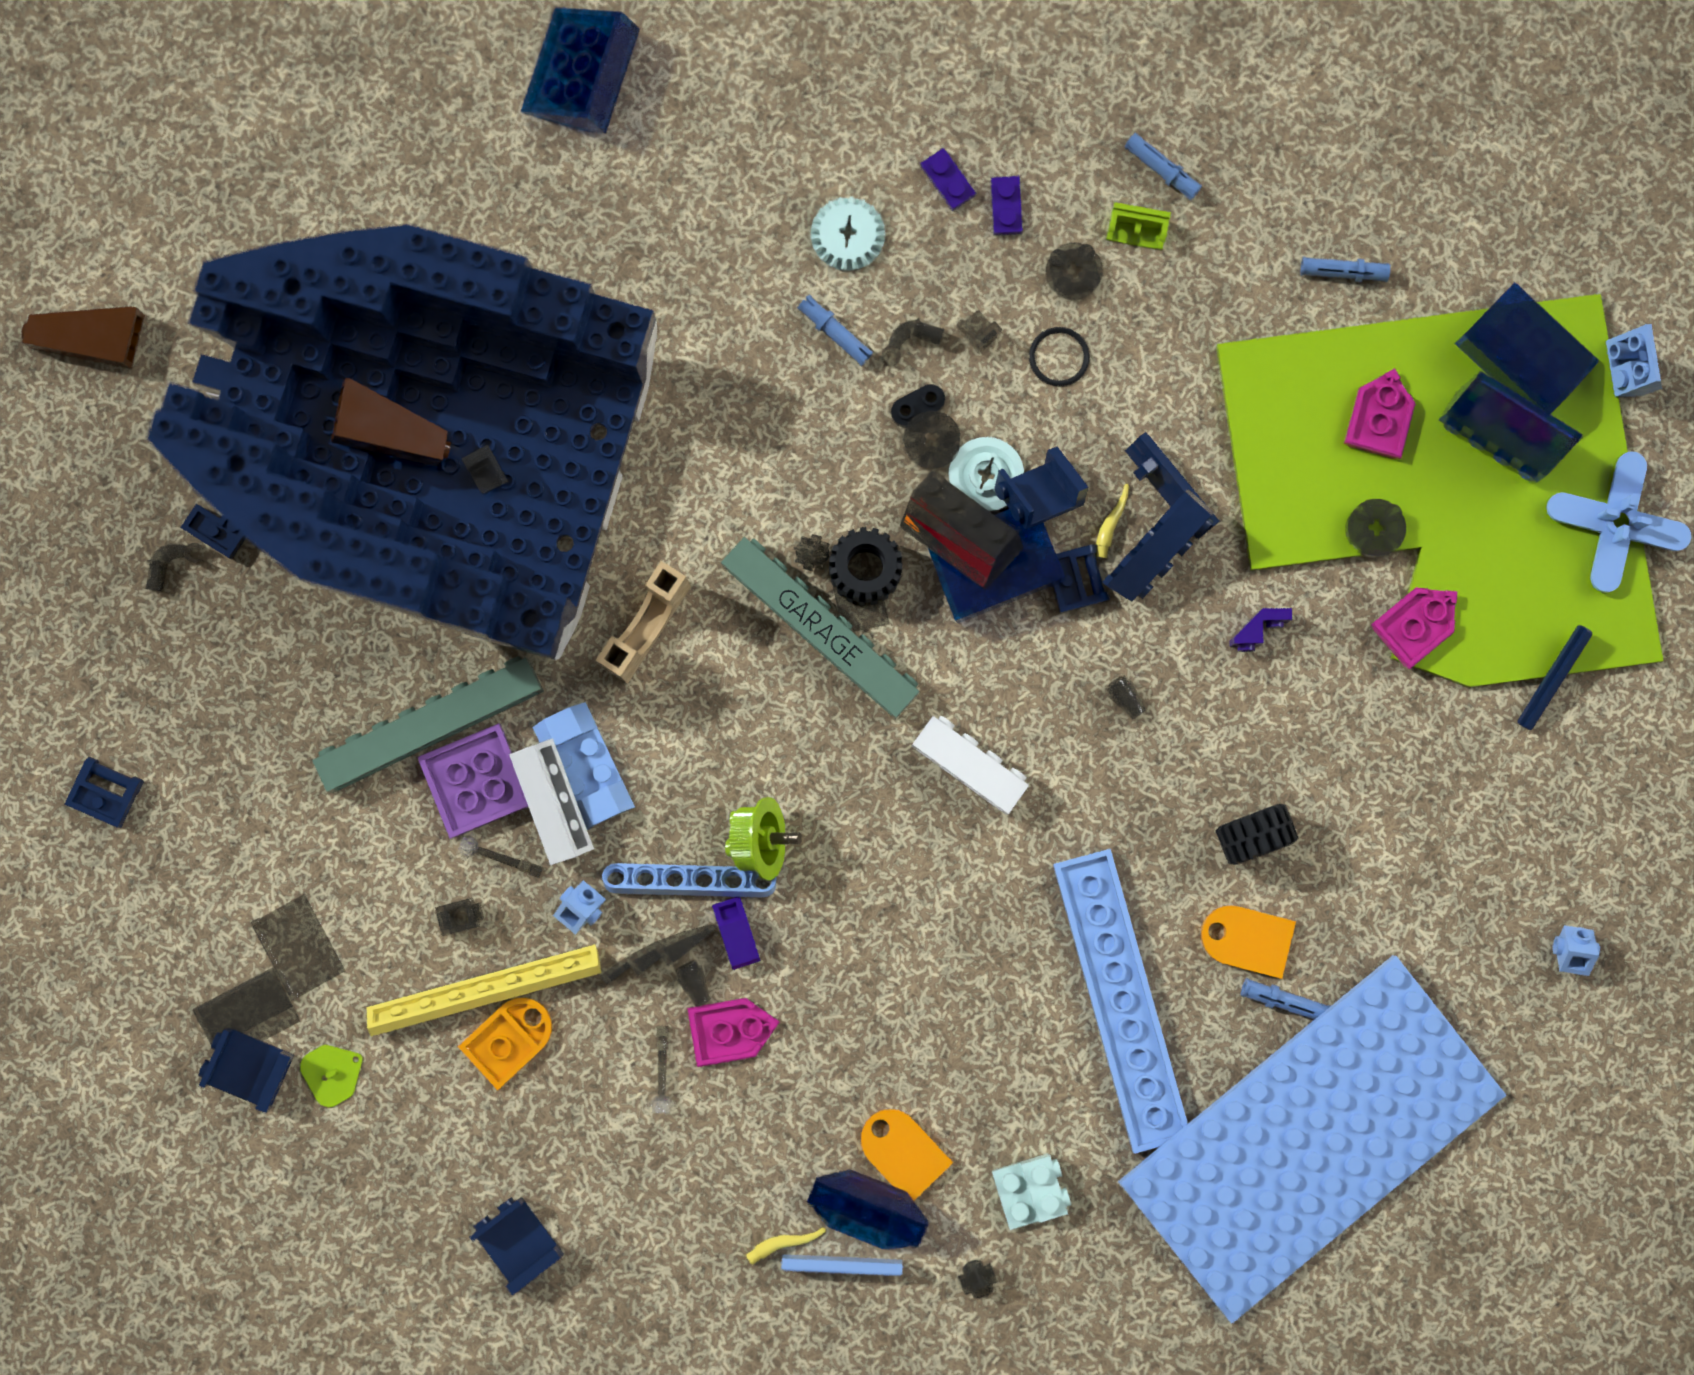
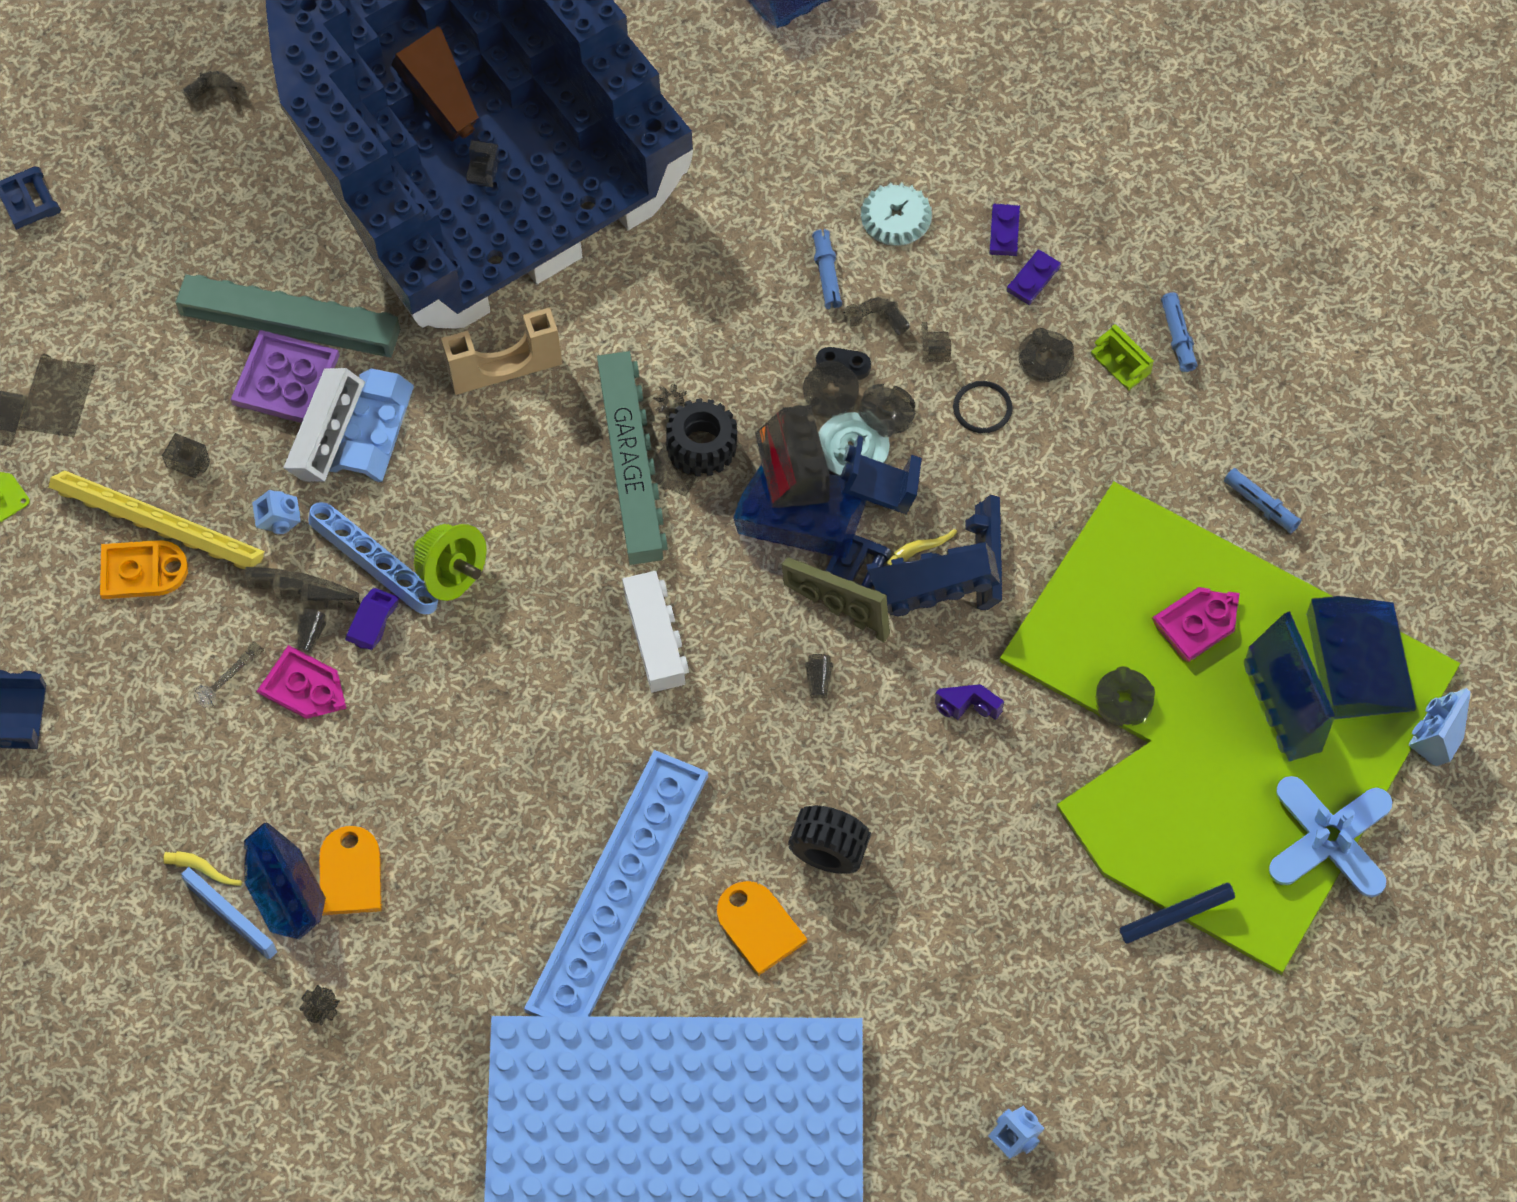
camera: 40 degrees right, 20 degrees down
(213, 531) = (262, 87): dark blue plate -> none
(469, 847) = (238, 417): clear smoke piece -> none
(987, 436) = (884, 421): none -> clear smoke plate
(1031, 1191) = (420, 977): light aqua plate -> none
(1087, 618) = (839, 595): none -> olive wing
(1277, 998) = (741, 984): medium blue pin -> none
(1417, 624) = (1098, 790): dark pink tile -> none

